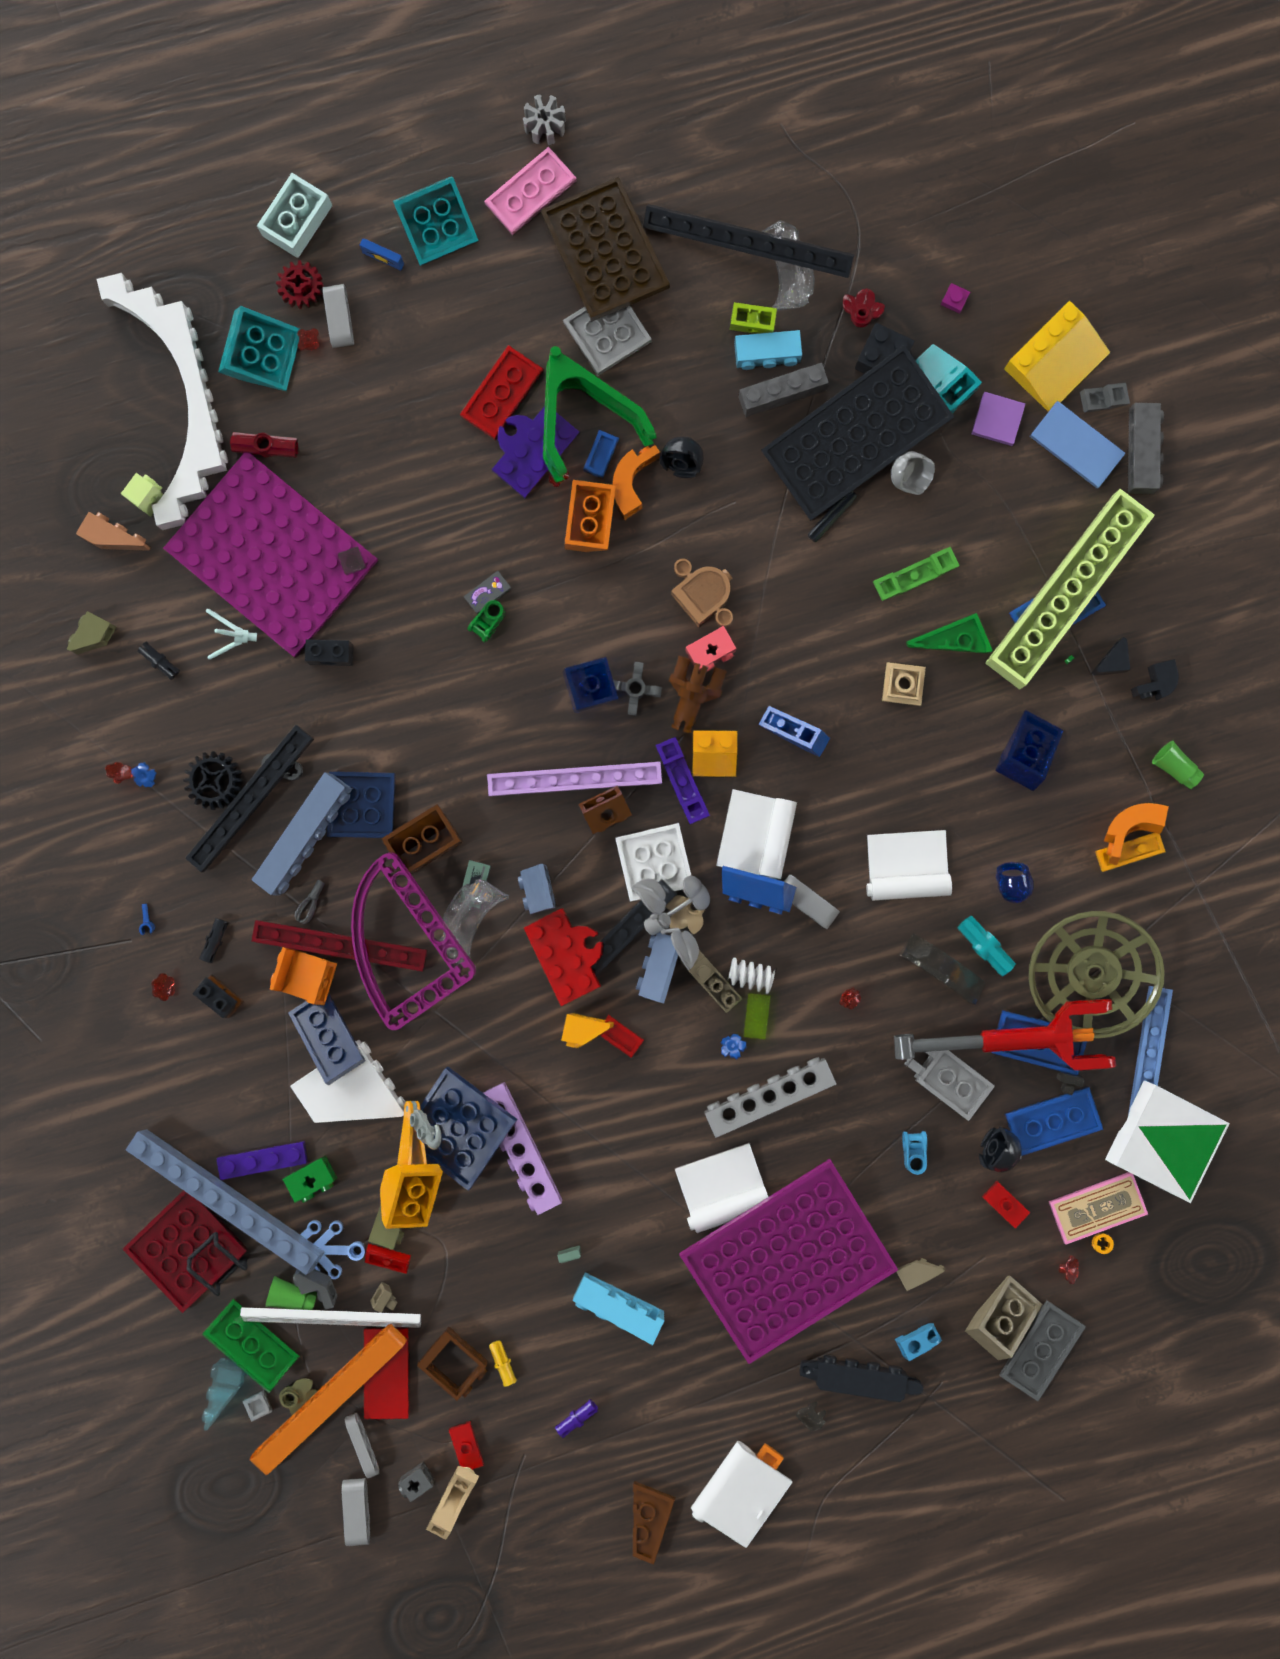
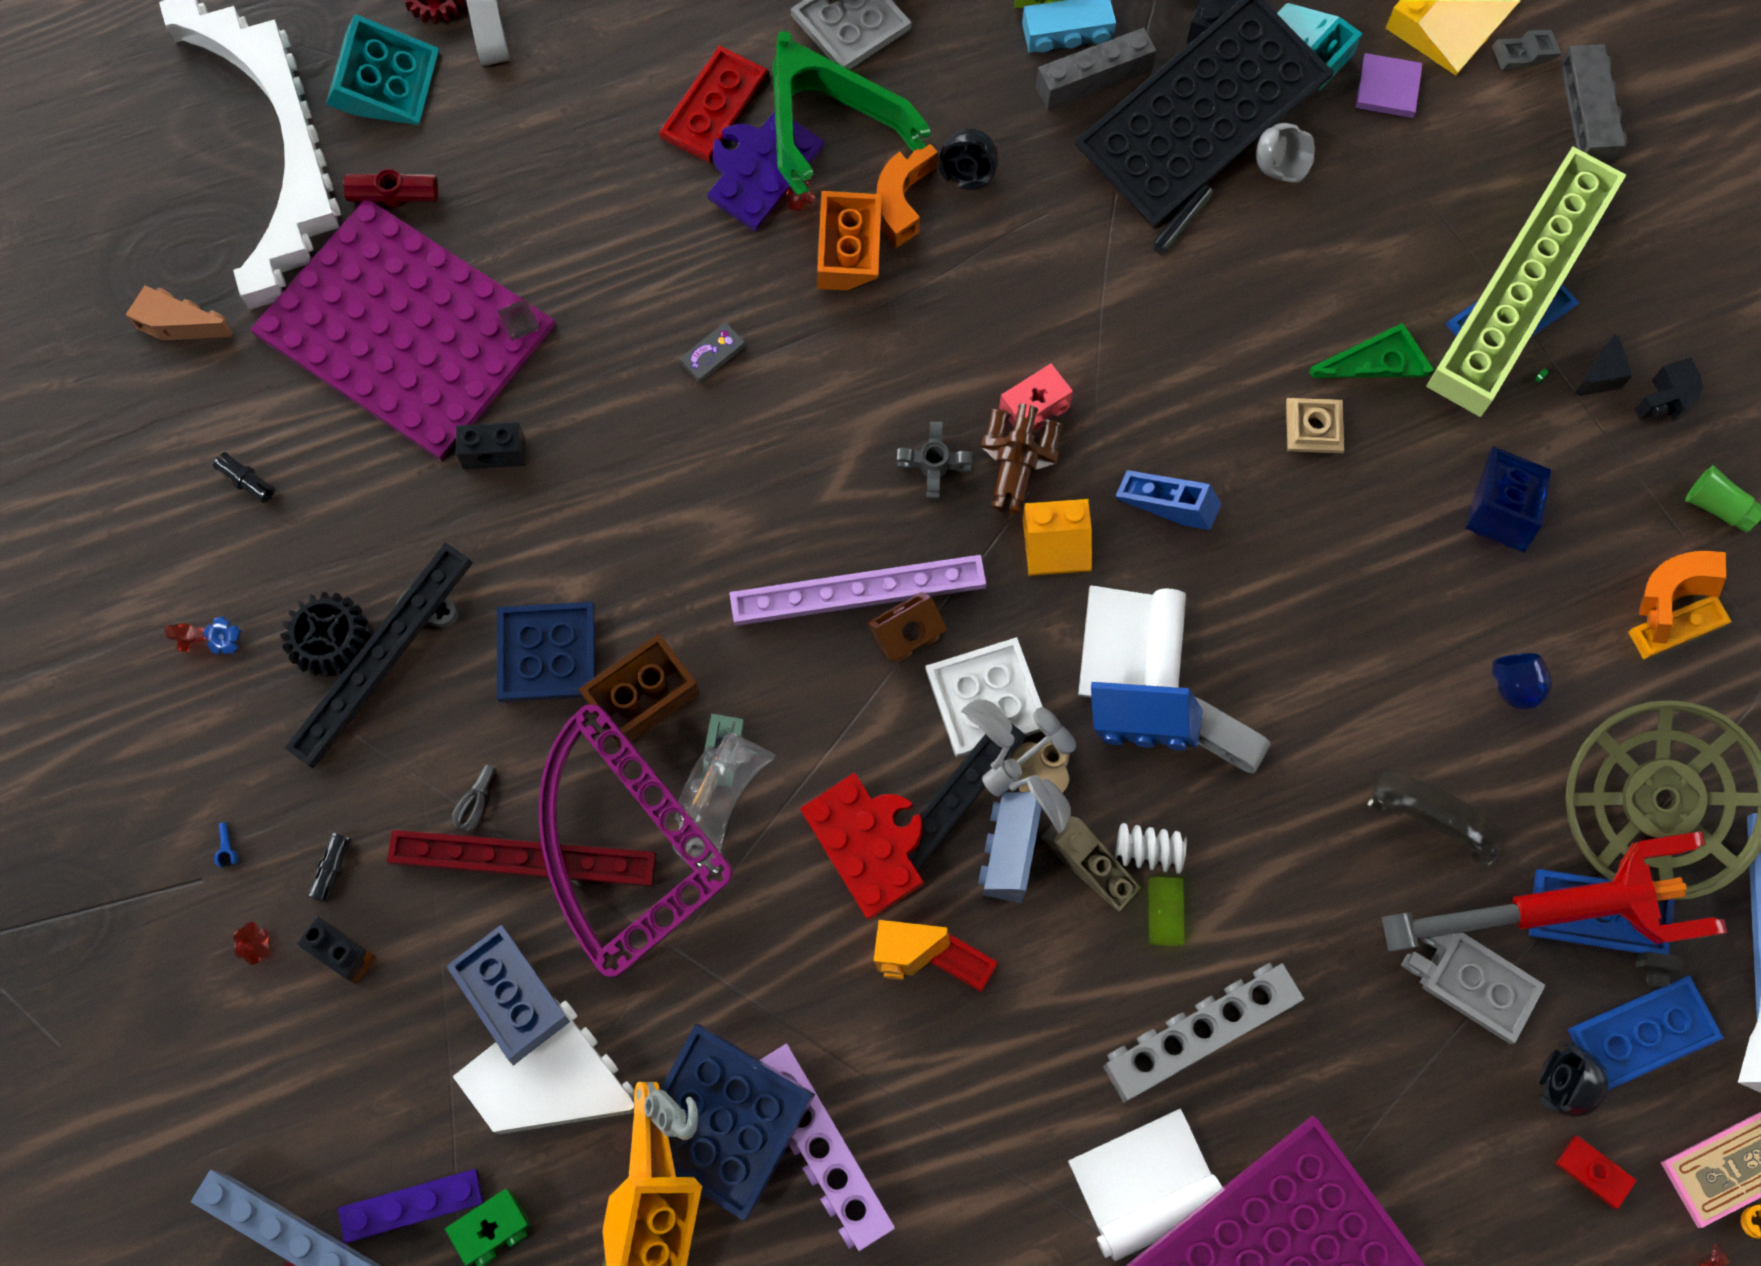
camera: 10 degrees left, 15 degrees down
(91, 634) = (146, 449): olive slope -> none
(143, 493) = (219, 254): yellowish green brick -> none
(241, 636) = (362, 435): light aqua plant -> none
(302, 834) = (459, 697): sand blue brick -> none
(303, 976) = (467, 906): orange panel -> none
(308, 345) = (448, 65): clear red plate -> none
(486, 621) = (713, 391): green piece -> none
(537, 889) = (817, 744): sand blue slope -> none
(590, 684) = (868, 457): clear blue slope -> none
(601, 454) = (856, 166): blue tile -> none
(682, 780) = (1014, 580): dark purple slope -> none
(703, 593) = (1016, 327): medium nougat piece -> none
(733, 1046) = (1136, 959): blue plant -> none
(850, 998) = (1305, 871): clear red plate -> none
(908, 865) = (1361, 671): white door -> none
(915, 1150) = (1440, 1095): dark azure piece -> none
(916, 574) = (1312, 283): bright green slope -> none
(986, 945) = (1496, 776): teal piece -> none
(1077, 444) = (1501, 107): medium blue tile -> none

